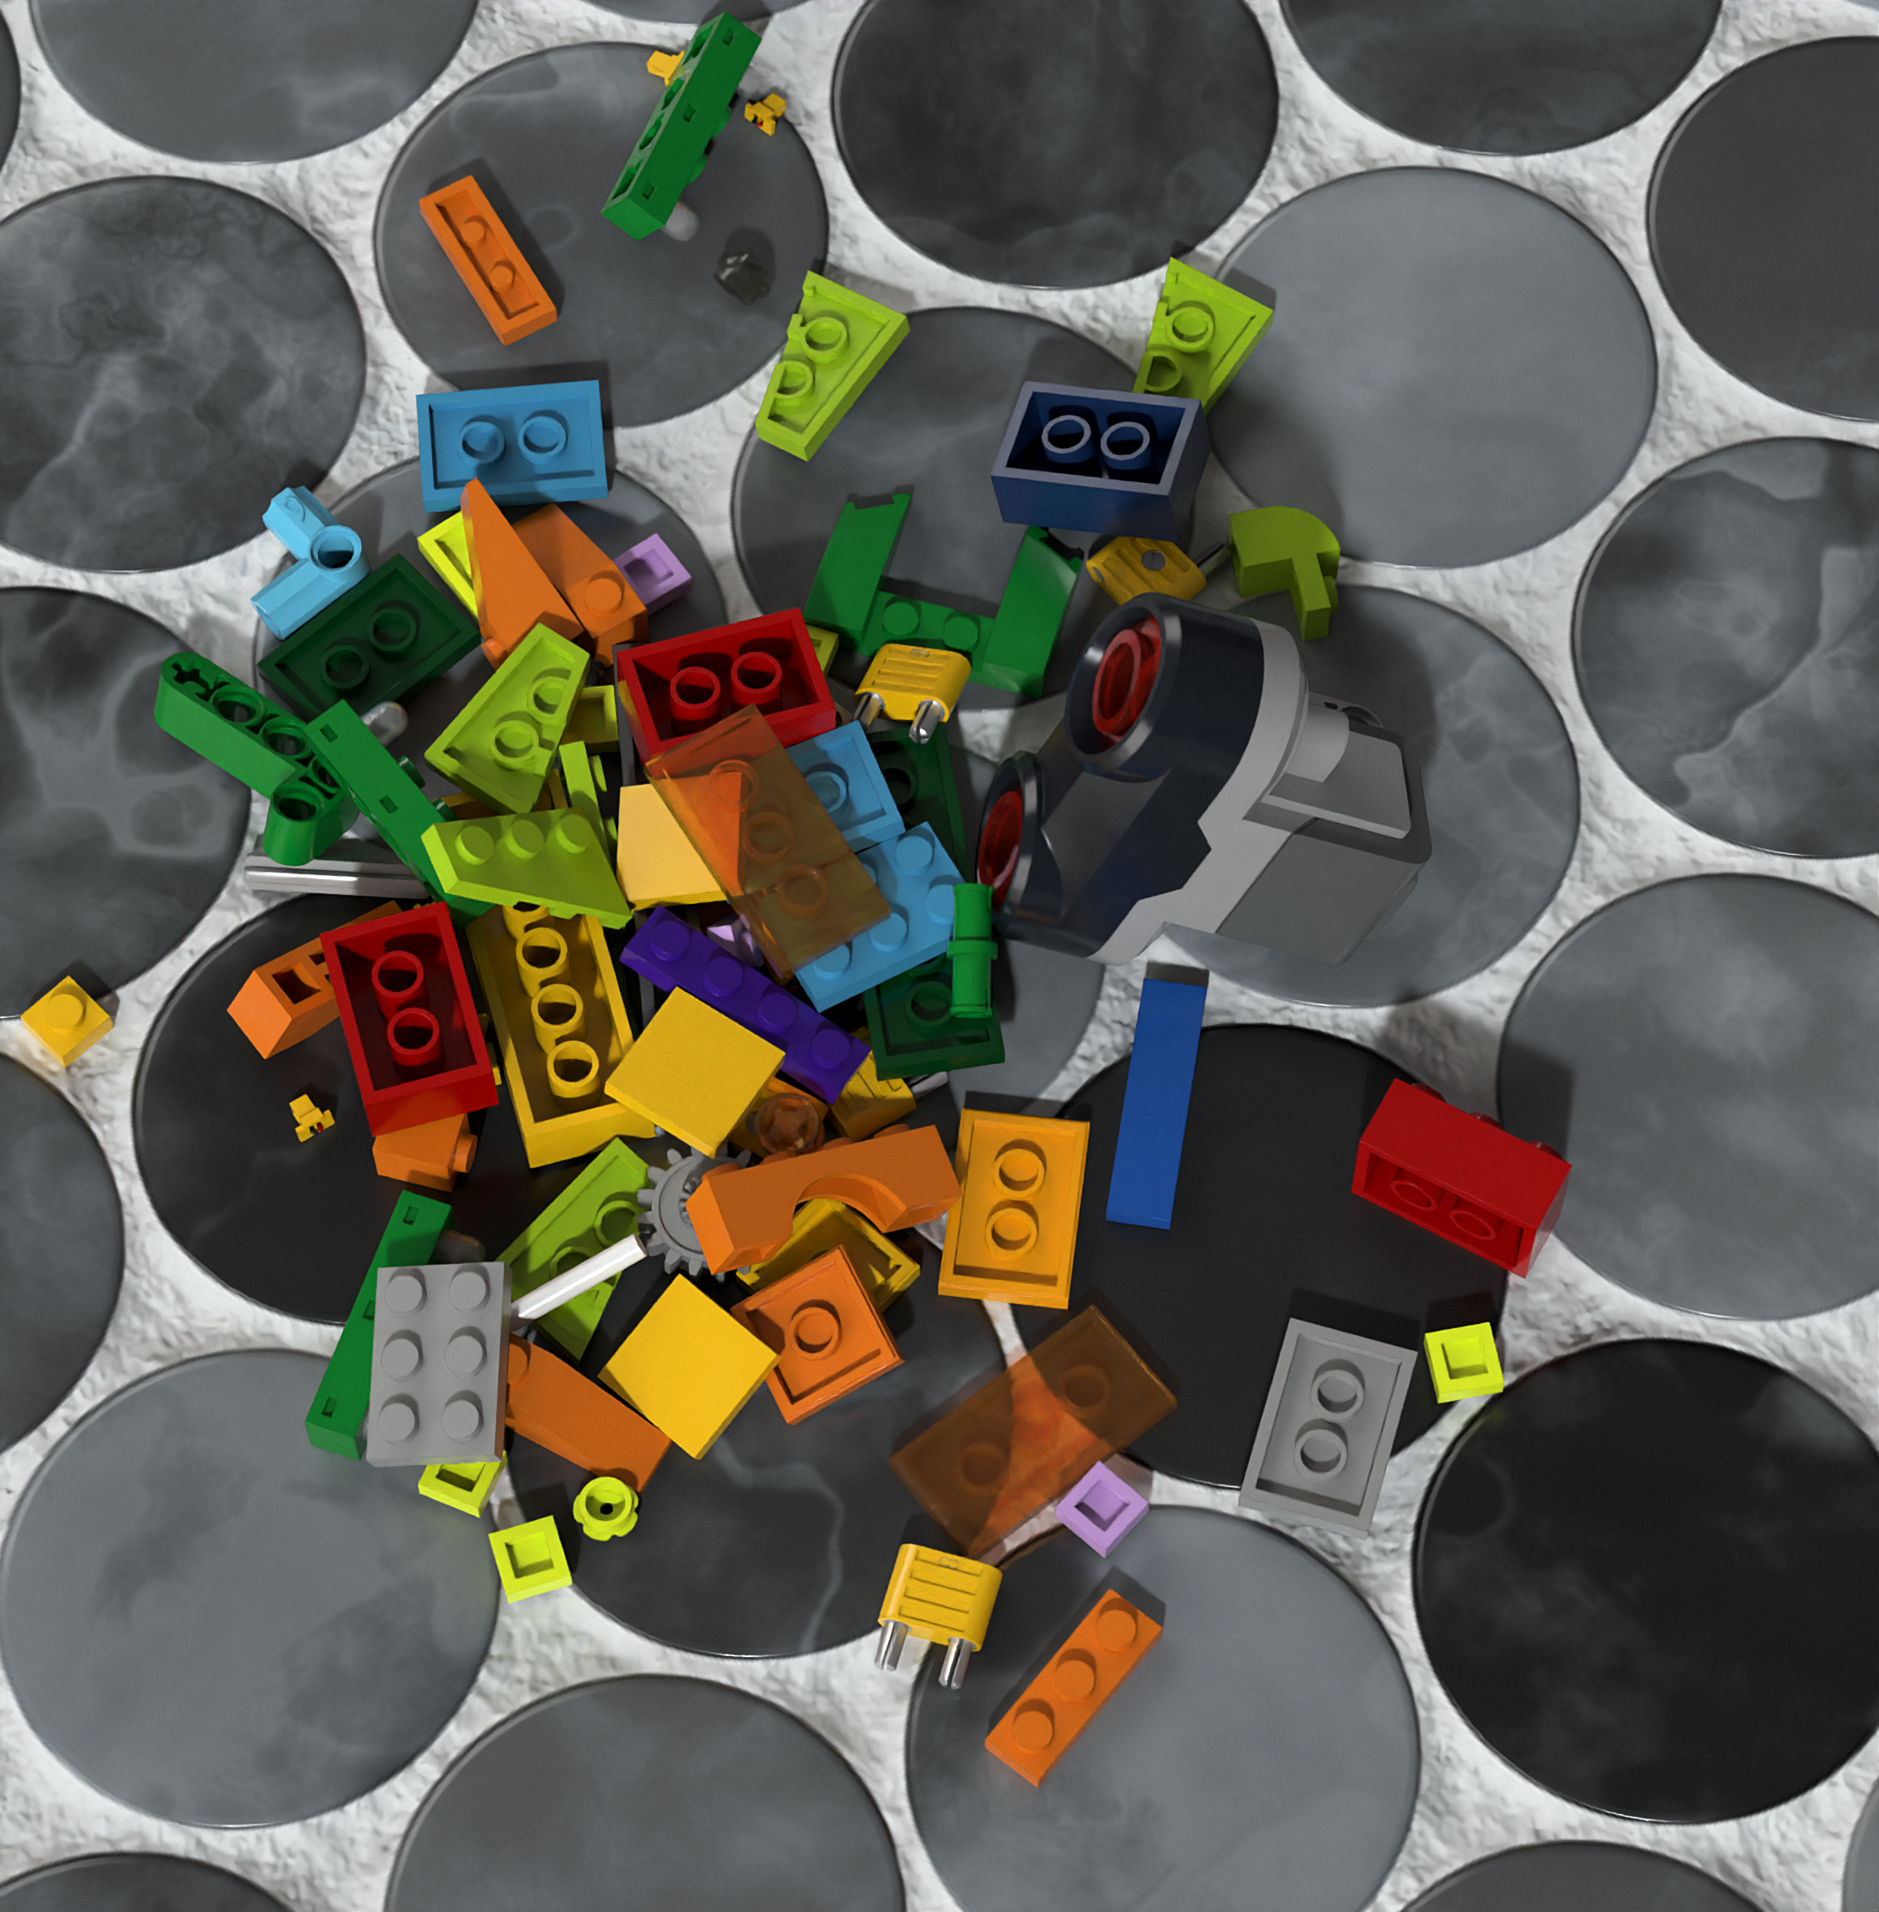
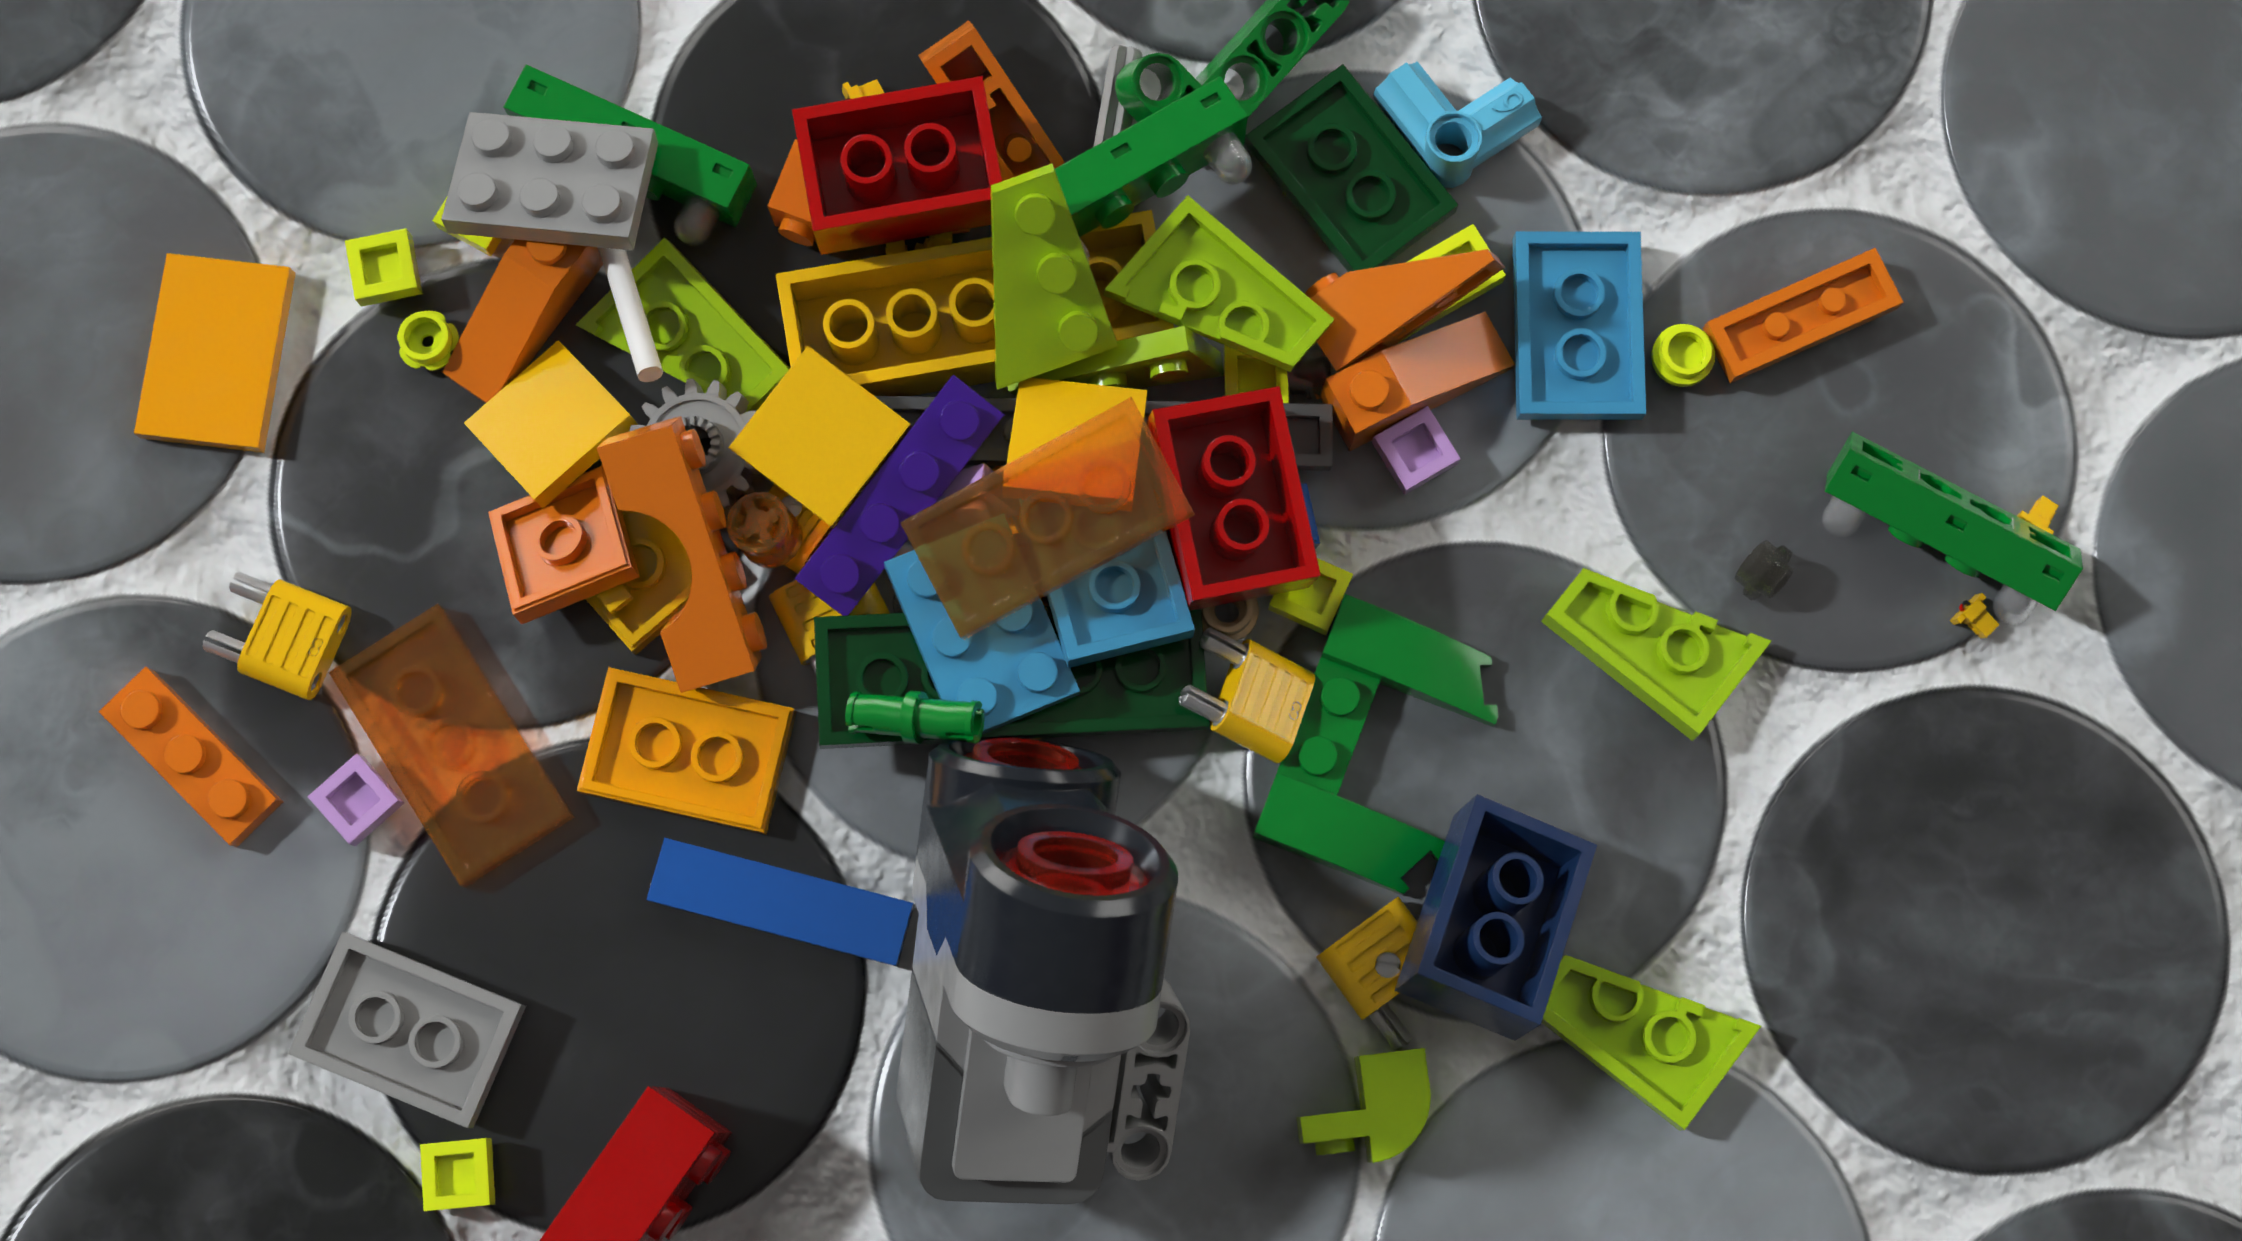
camera: 95 degrees right, 15 degrees up
(533, 358) = (1683, 355): none -> neon yellow plate
(635, 1726) = (215, 353): none -> light orange tile

